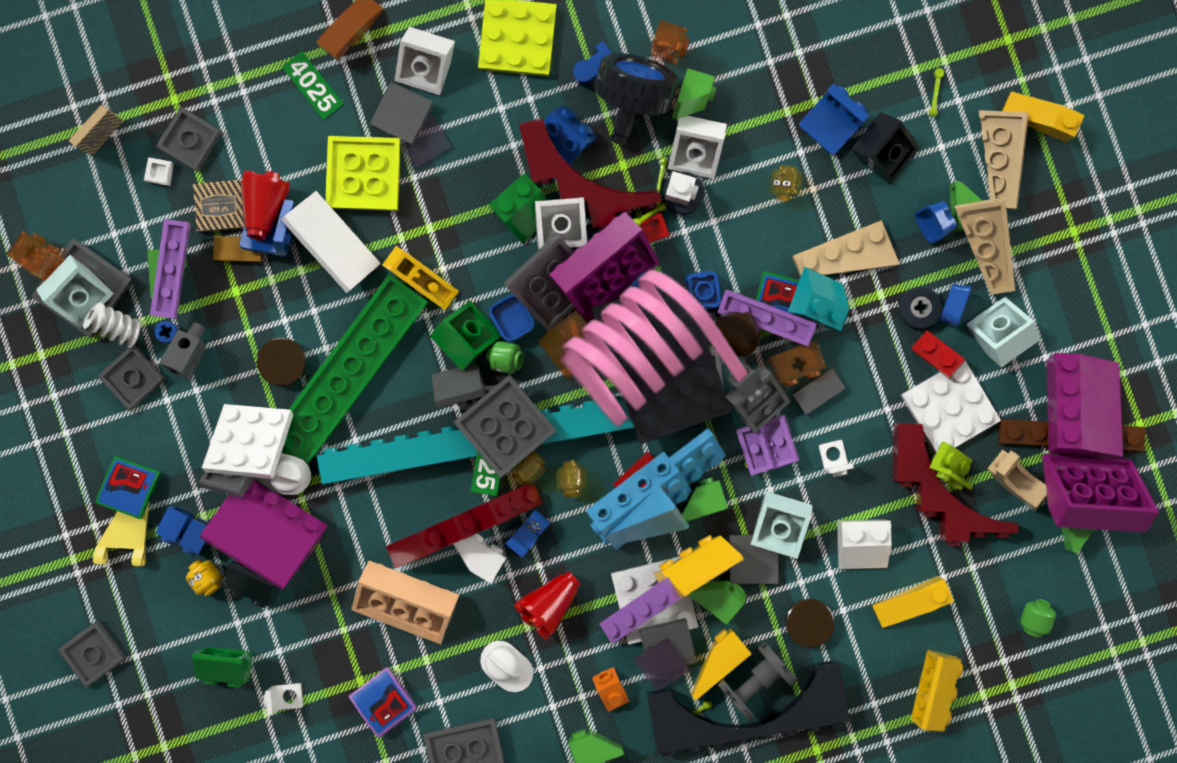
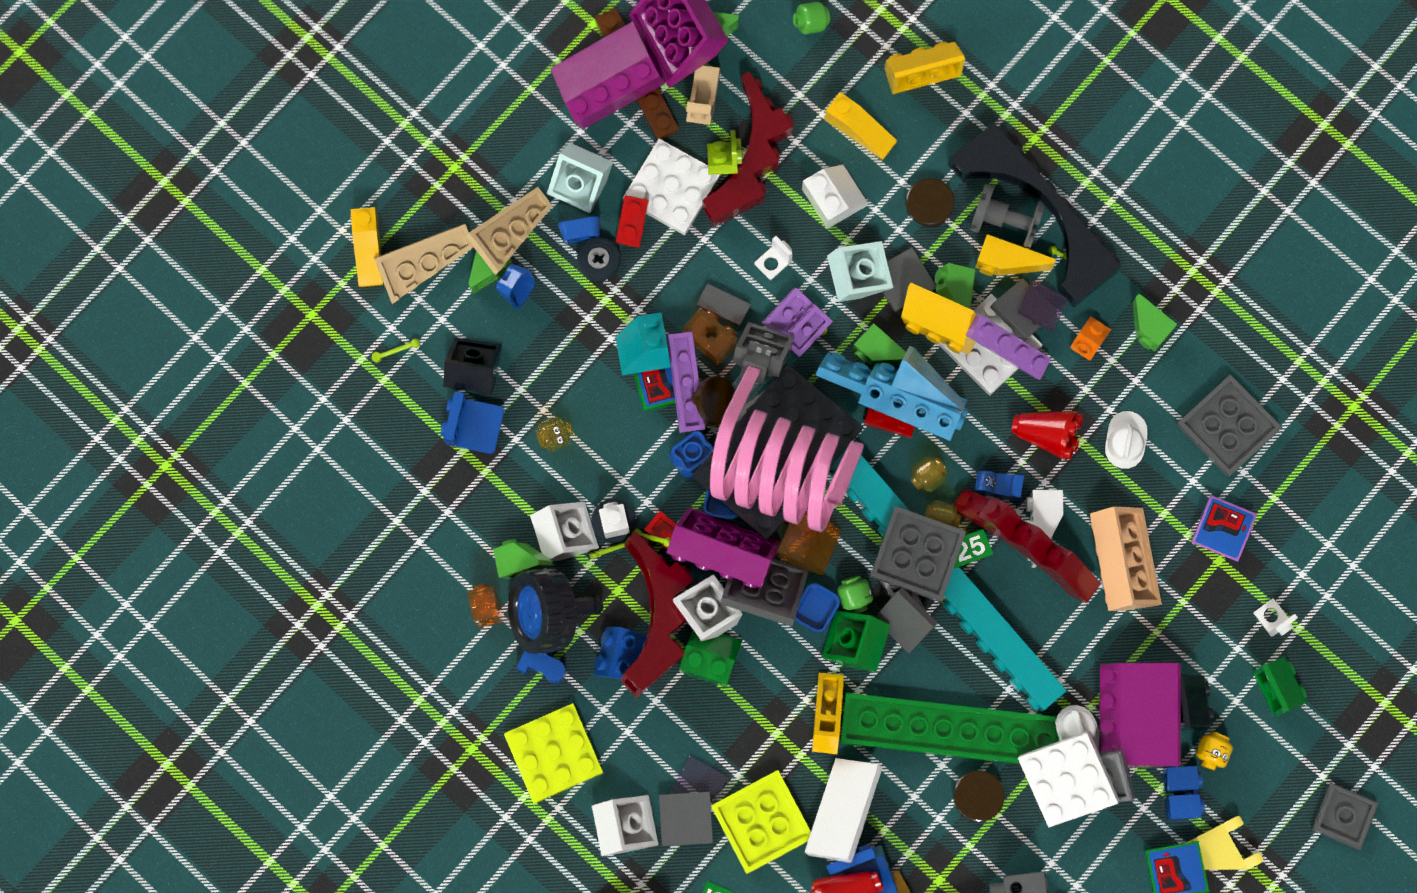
camera: 120 degrees left, 10 degrees down
(849, 253) = (582, 344): tan wing -> none

